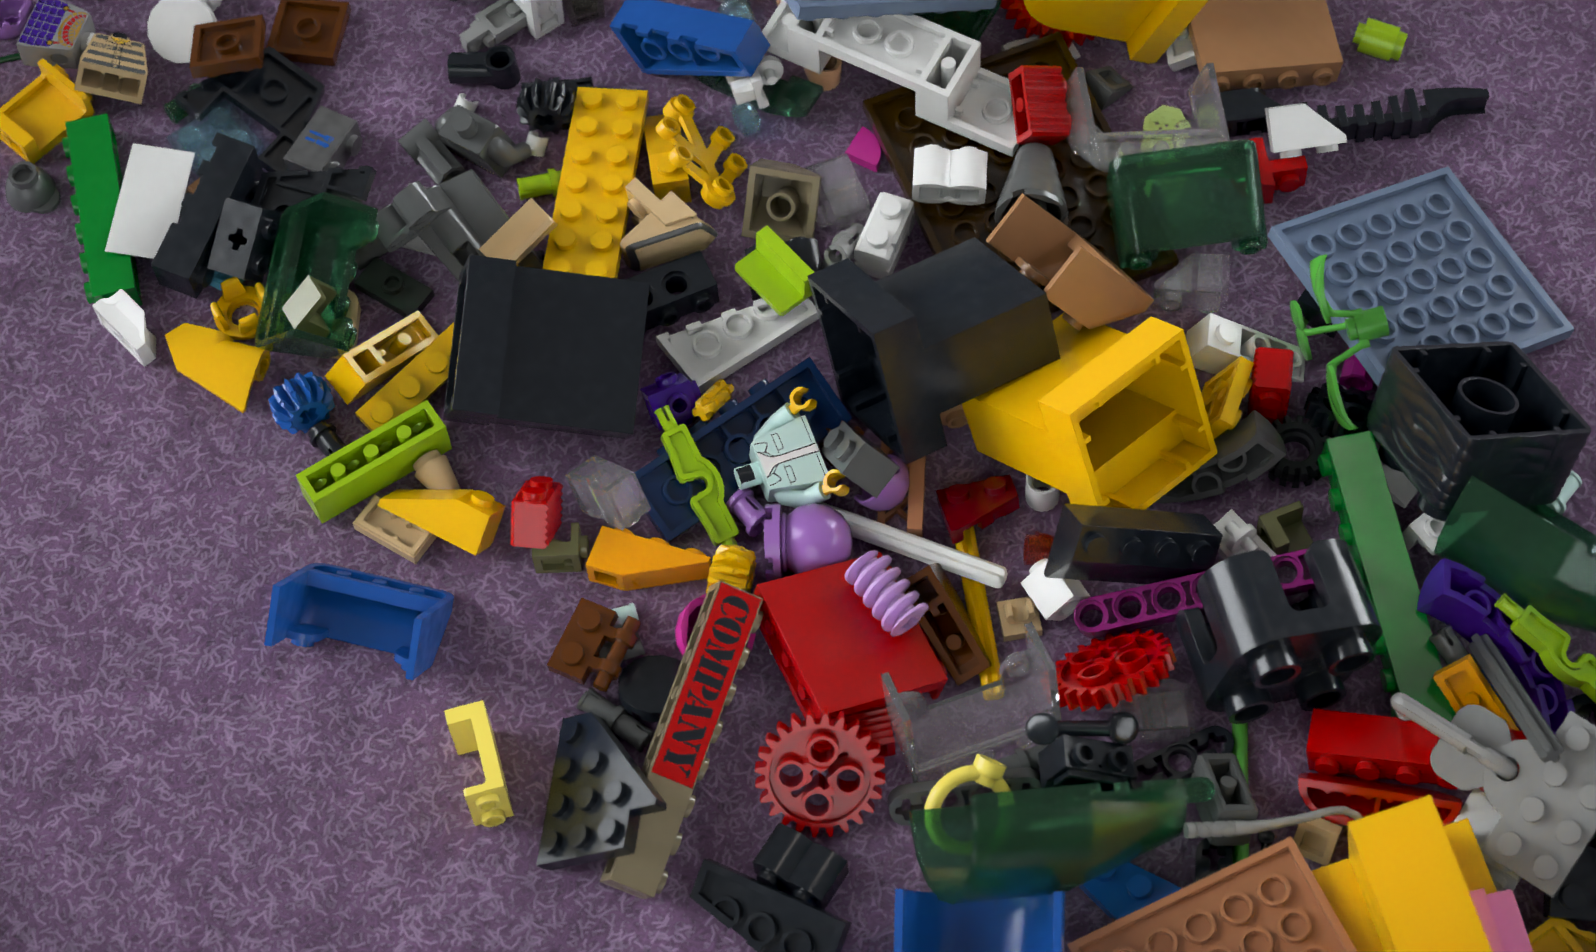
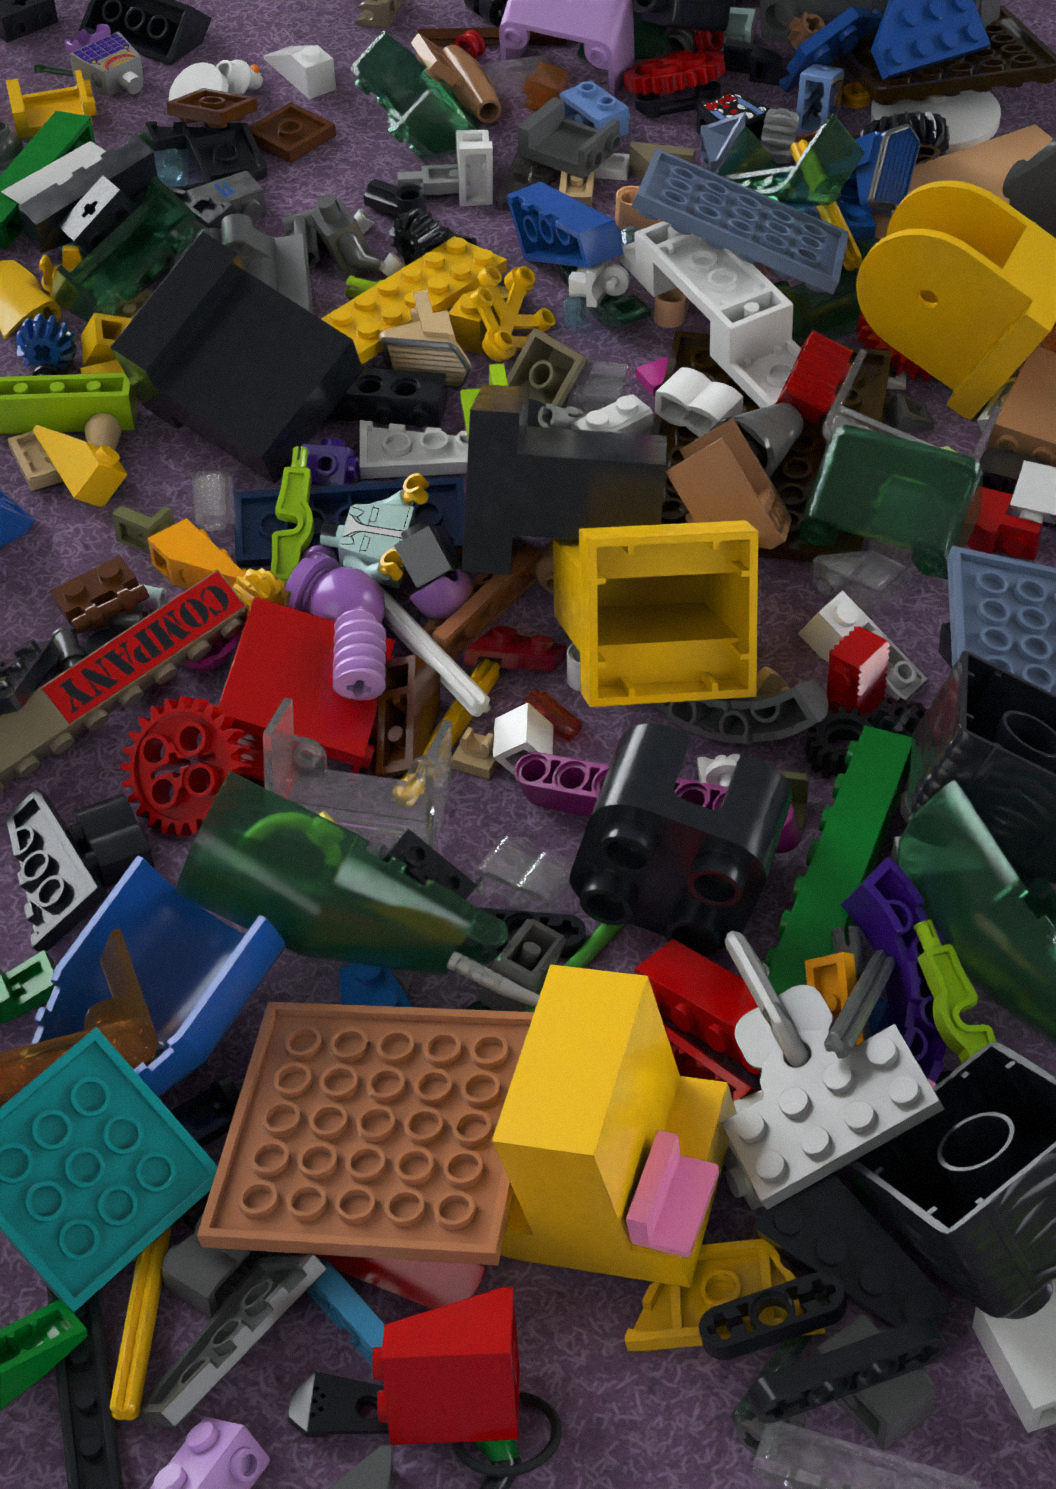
camera: 30 degrees right, 15 degrees down
(113, 68) = (121, 93): tan torso -> none
(307, 304) = (104, 272): olive panel -> none
(520, 233) = (315, 293): tan panel -> none
(536, 513) = (142, 484): red brick -> none
(712, 400) = (352, 474): yellow axle -> none
(1114, 669) = (510, 814): red gear -> none
(1119, 727) = (473, 857): black bar -> none
(1130, 545) = (586, 706): black slope -> none
(1224, 394) = (802, 663): yellow plate -> none
(1361, 326) = (929, 646): bright green plant -> none

